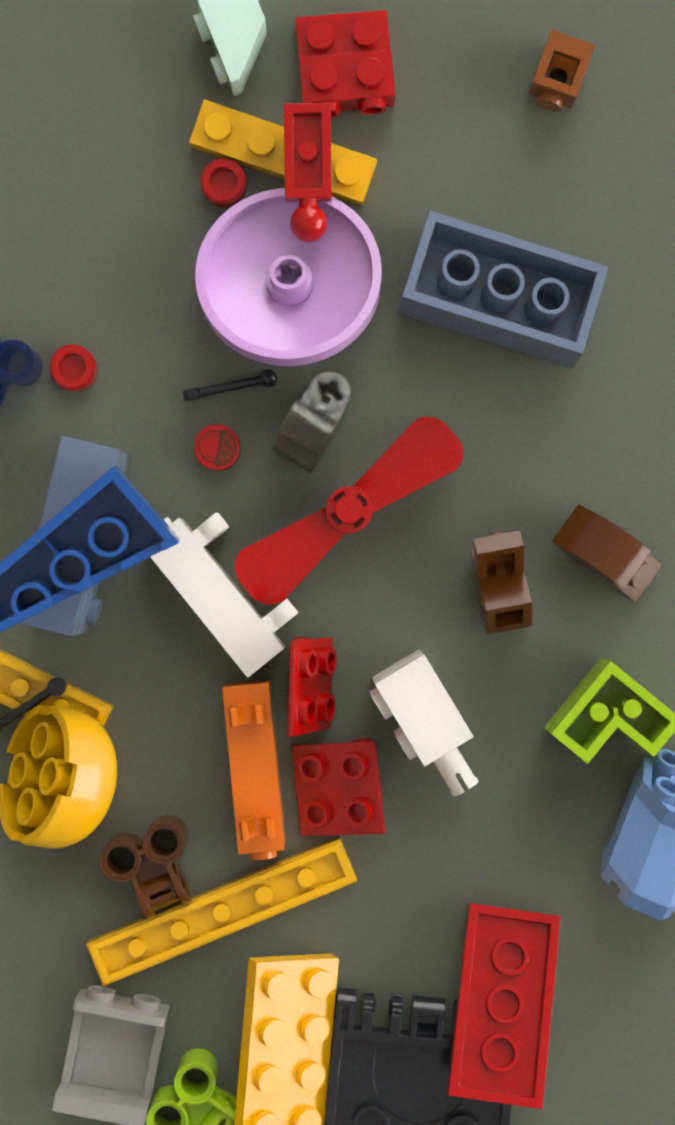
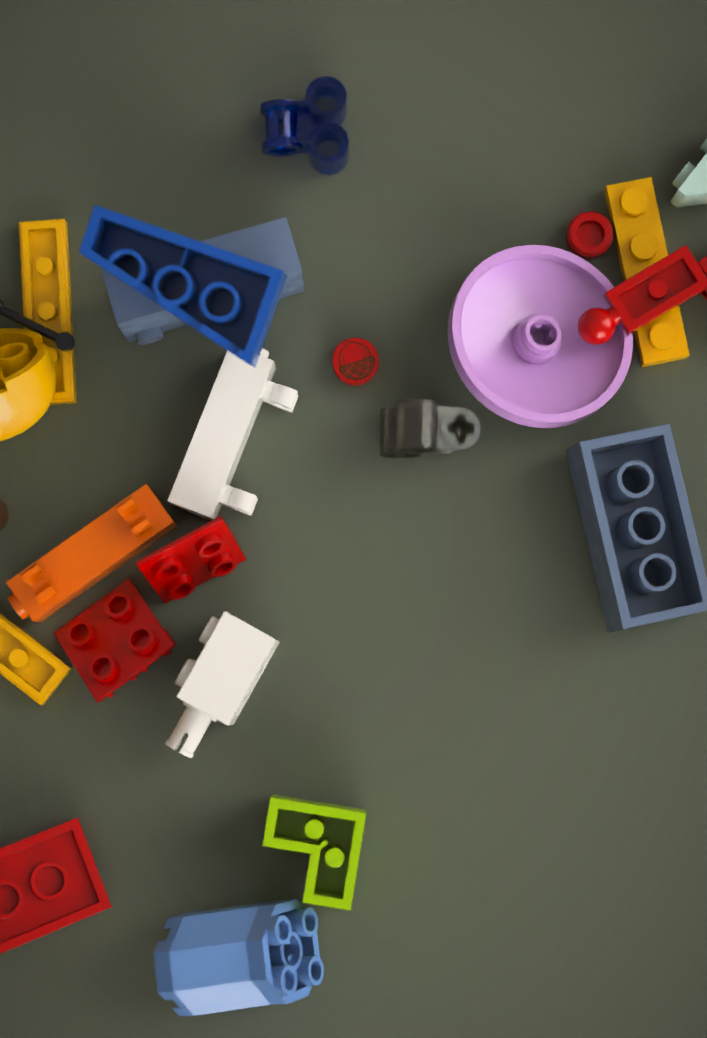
camera: 60 degrees right, 5 degrees down
(73, 368) = (352, 199): red tile -> none
(267, 378) = (440, 370): black hinge -> none
(283, 559) = (290, 474): red piece -> none
(501, 581) = (381, 678): reddish brown brick -> none
(607, 552) = (462, 759): reddish brown brick -> none

